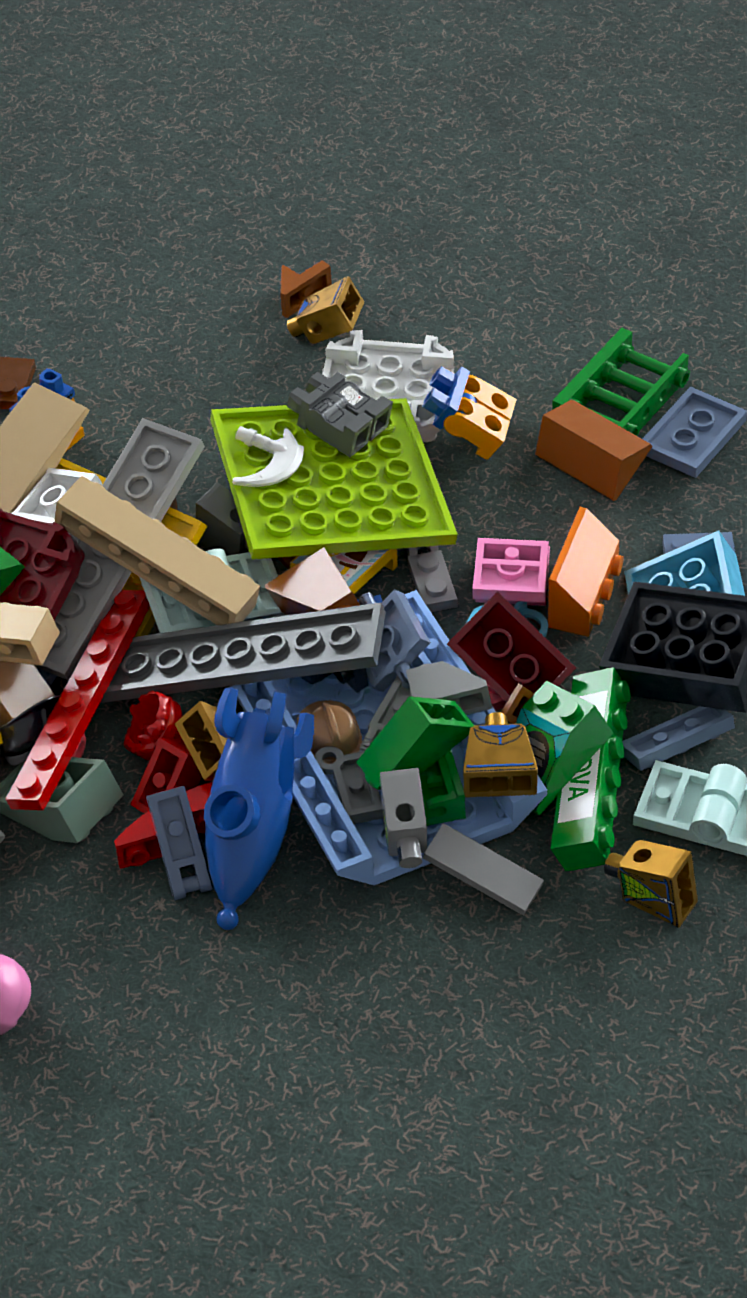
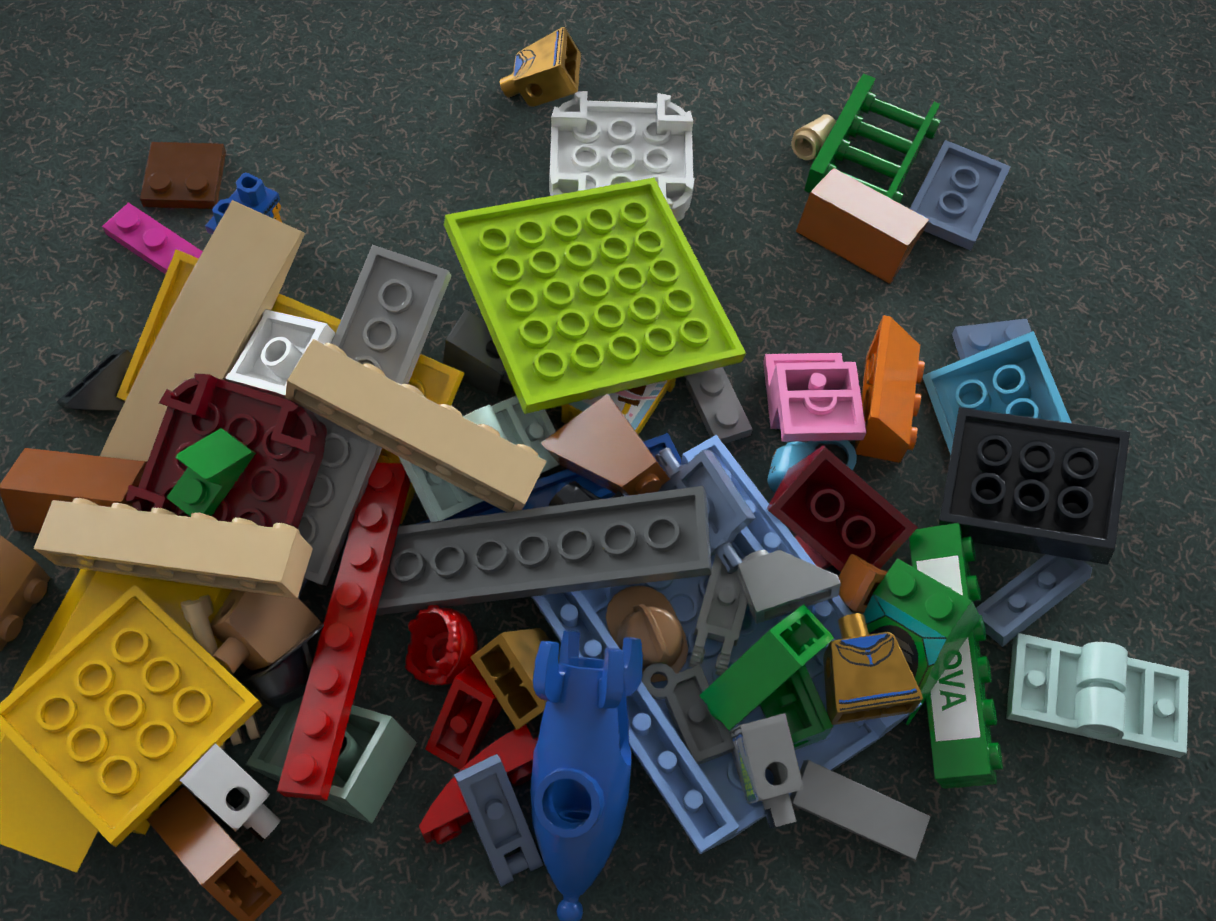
camera: 15 degrees left, 15 degrees up
(285, 461) = (542, 276): white piece -> none
(297, 287) = (508, 39): dark orange slope -> none
(340, 412) = (590, 207): dark grey hips -> none
(470, 409) = (725, 186): light orange hips -> none
(560, 377) = (812, 137): none -> tan cone
(656, 879) = (1059, 806): pearl gold torso -> none

